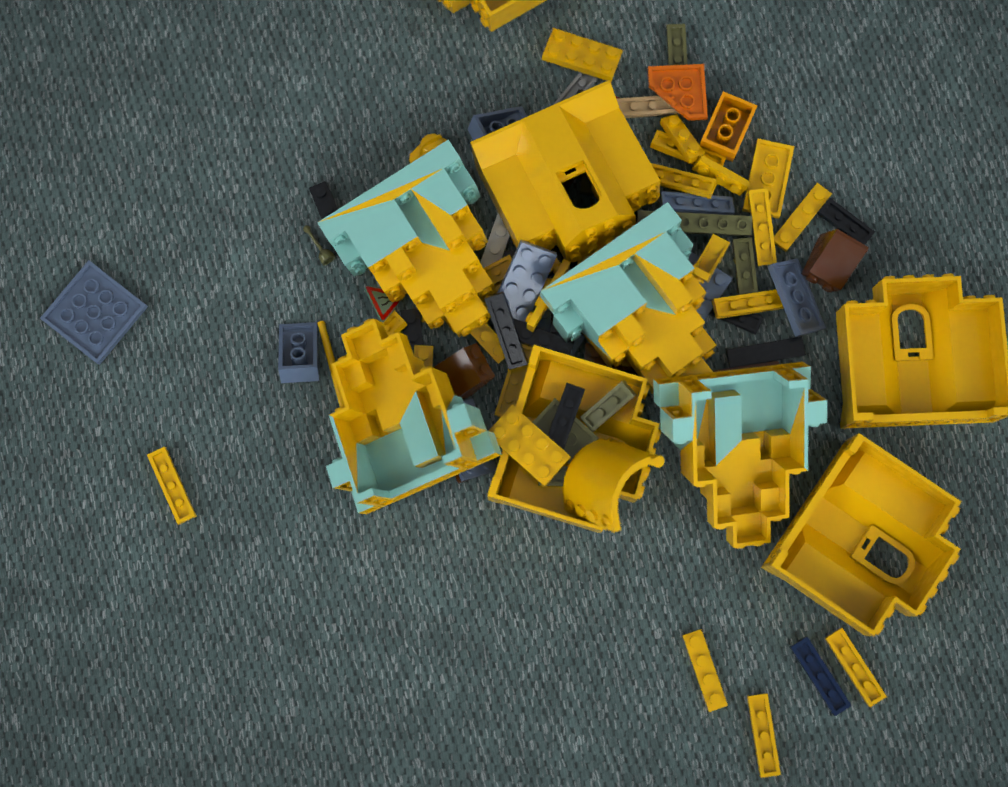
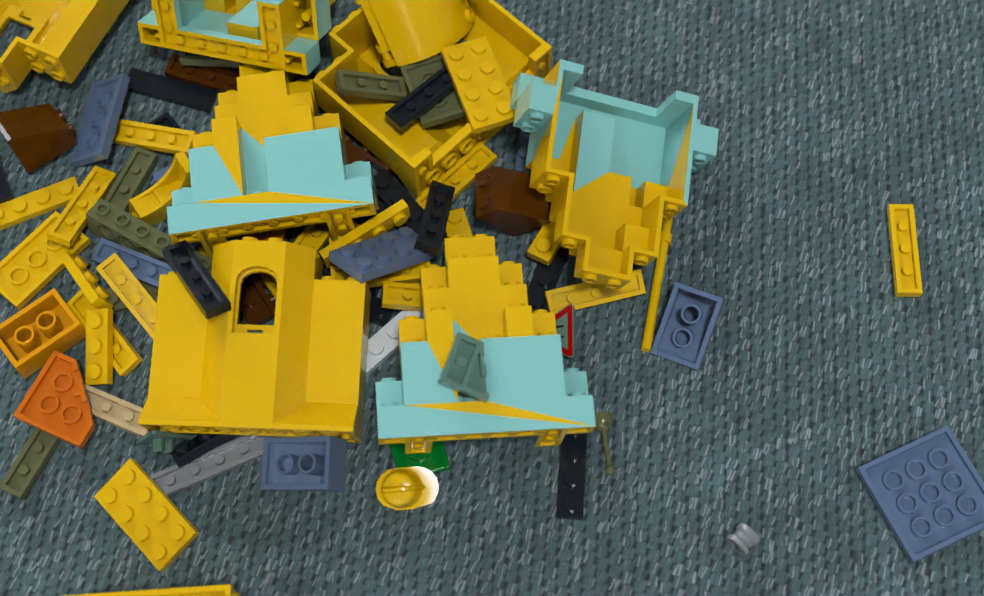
camera: 155 degrees left, 15 degrees down
(201, 222) = (742, 539): none -> light grey wheel
(415, 207) = (465, 368): none -> sand green wing
(629, 182) = (196, 279): none -> black plate

